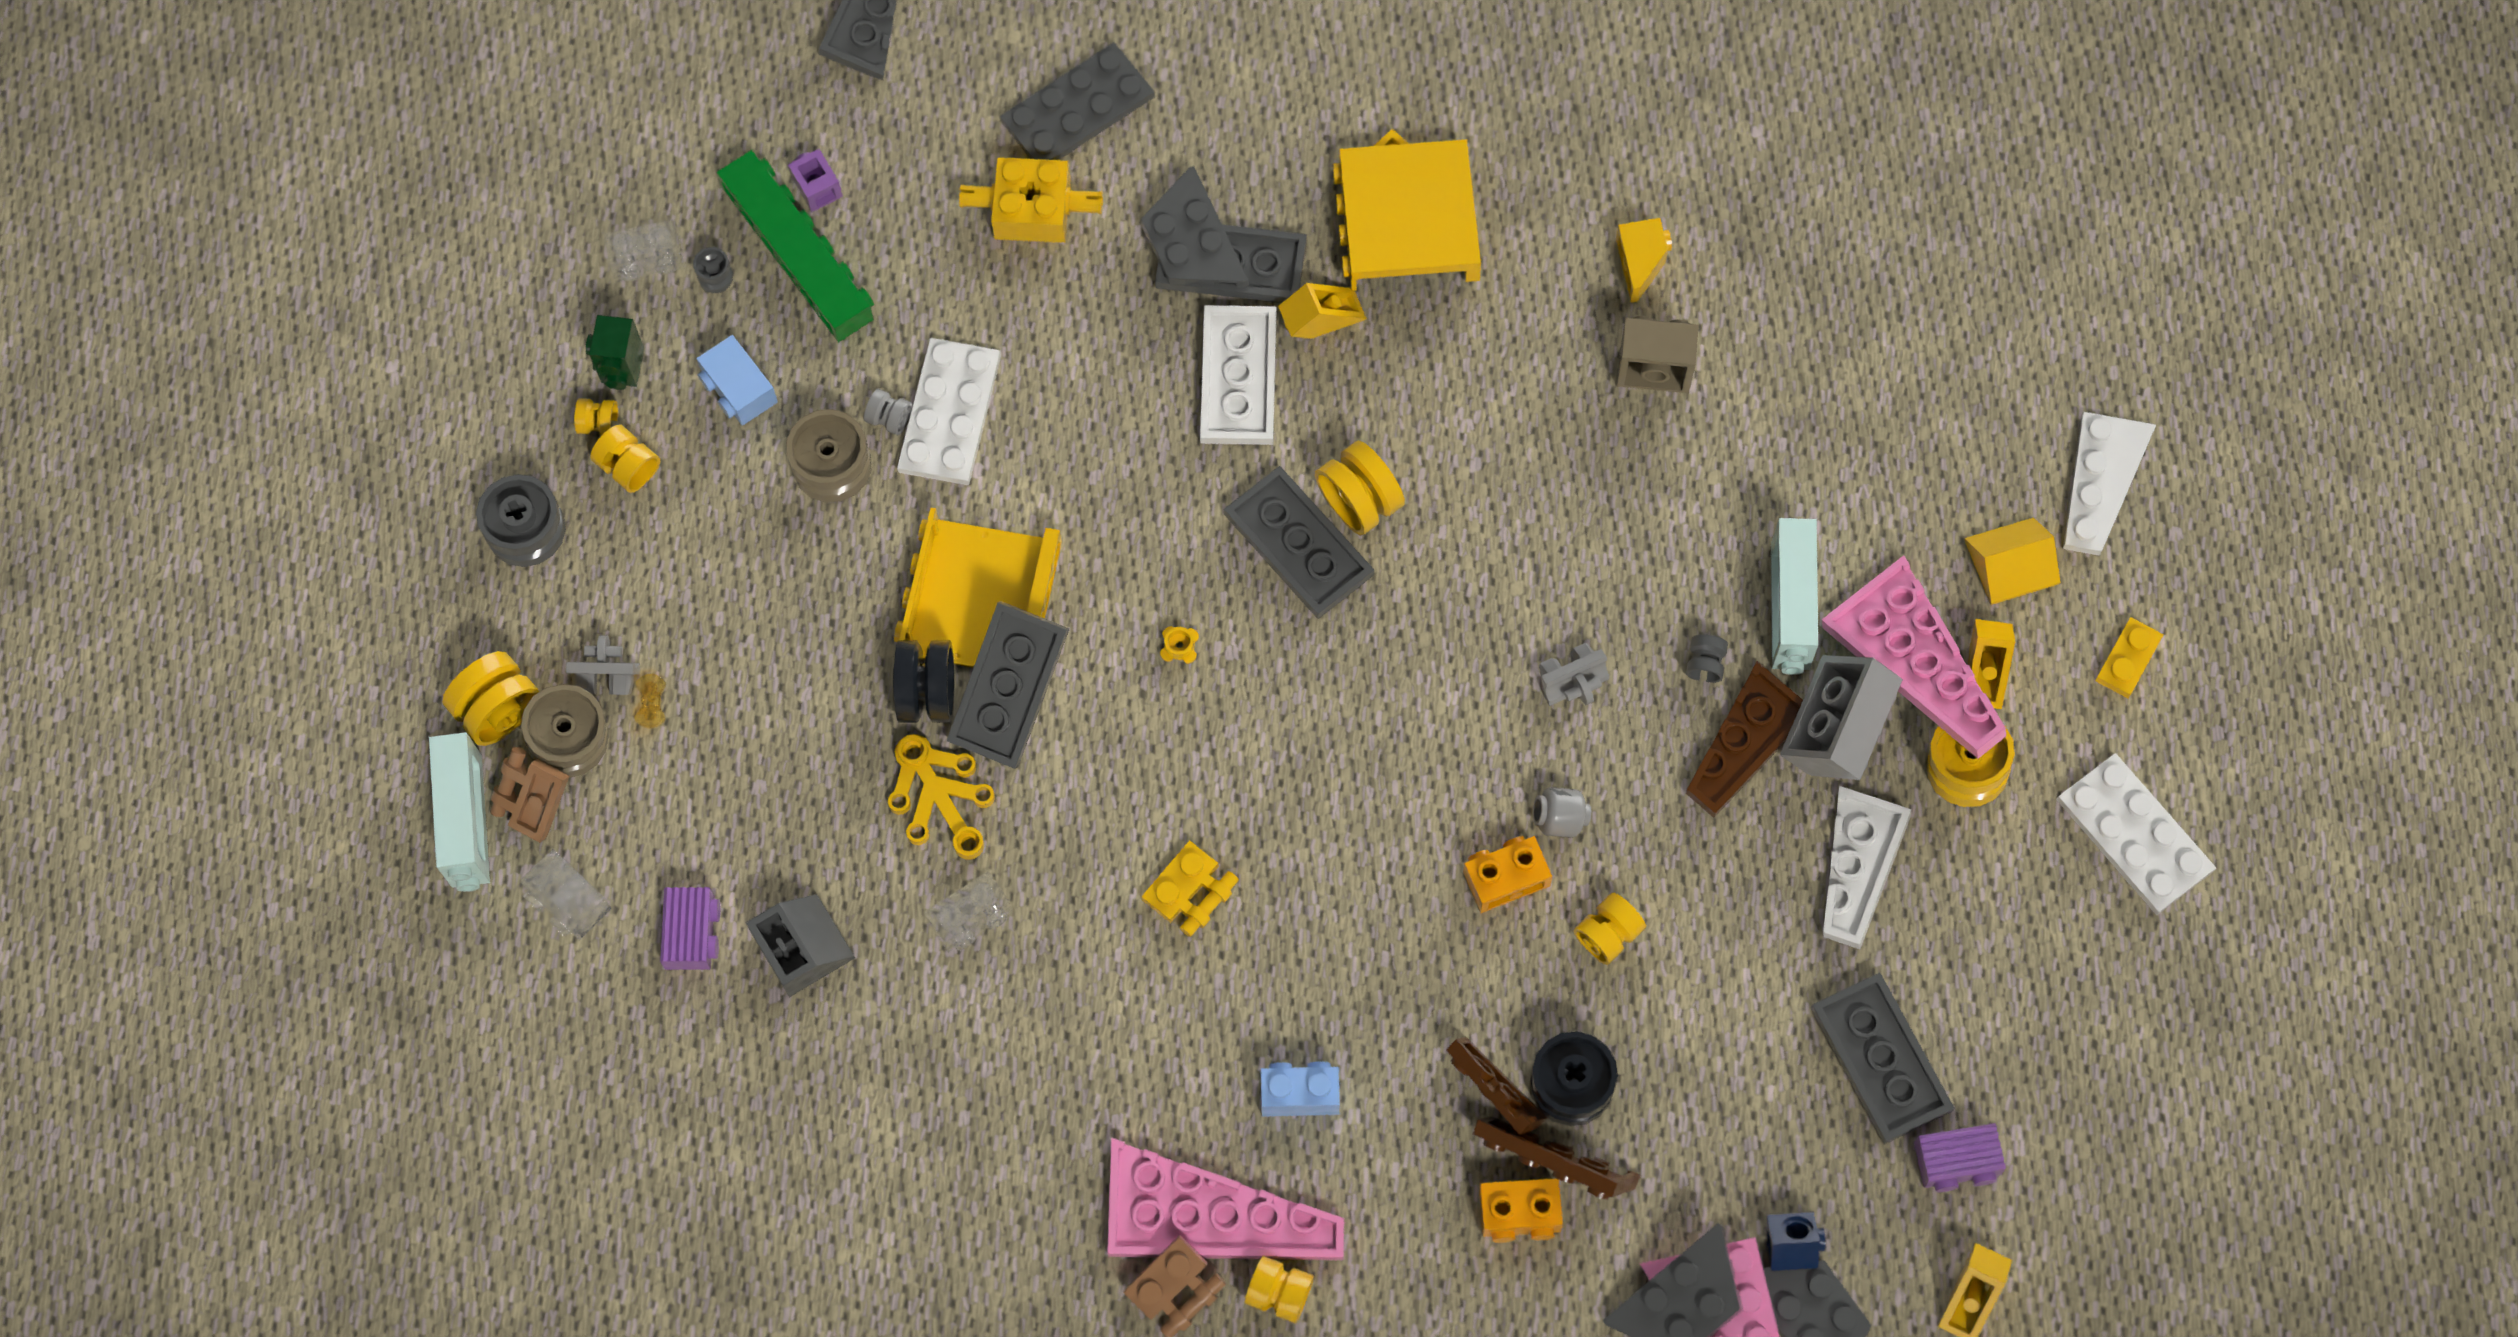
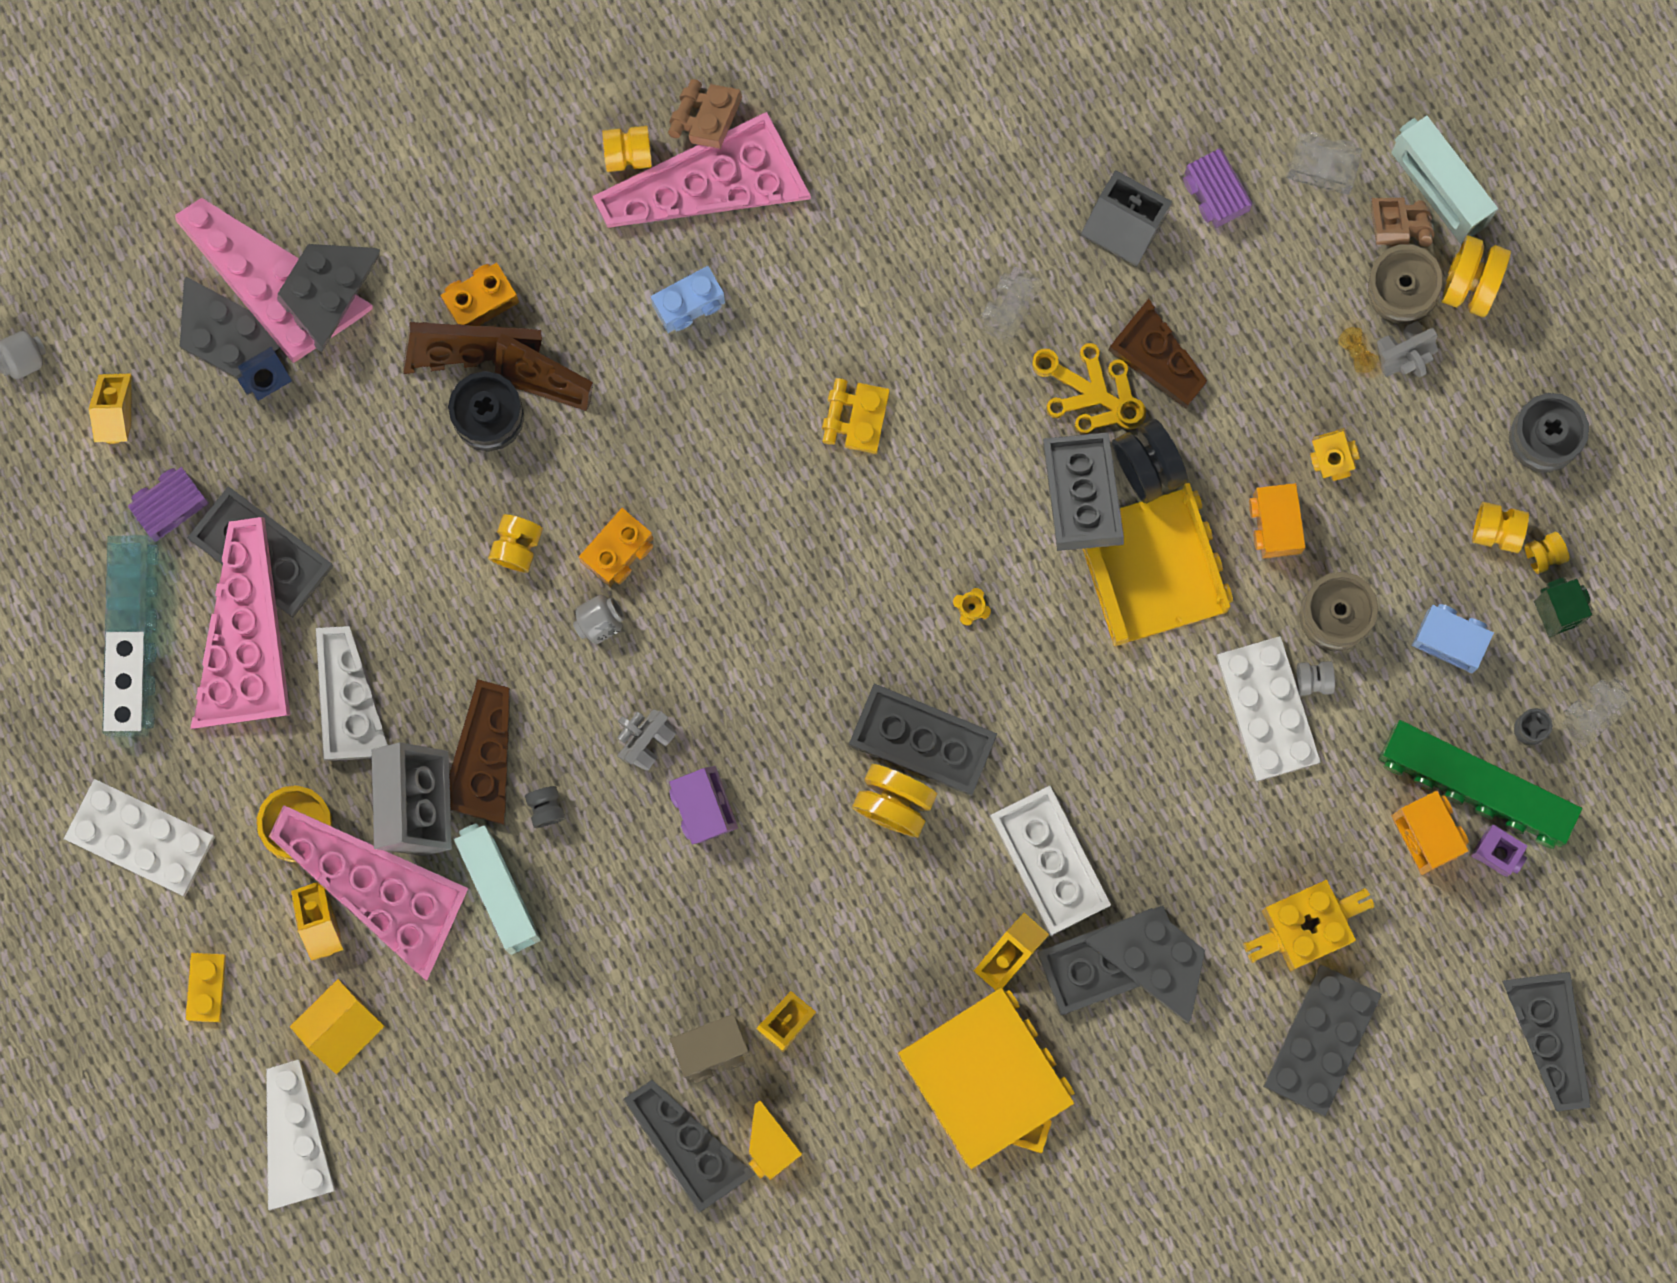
camera: 150 degrees right, 10 degrees up
(739, 604) = (1337, 442): none -> yellow brick
(833, 569) = (1277, 521): none -> light orange brick
(851, 793) = (1158, 357): none -> reddish brown wing
(868, 217) = (1430, 832): none -> light orange brick
(1549, 580) = (702, 805): none -> medium lavender brick
(1573, 350) = (786, 1021): none -> yellow slope
(1721, 286) = (690, 1152): none -> dark grey wing
(1944, 962) = (243, 647): none -> bright pink wing
(2061, 1037) = (128, 636): none -> clear light blue brick

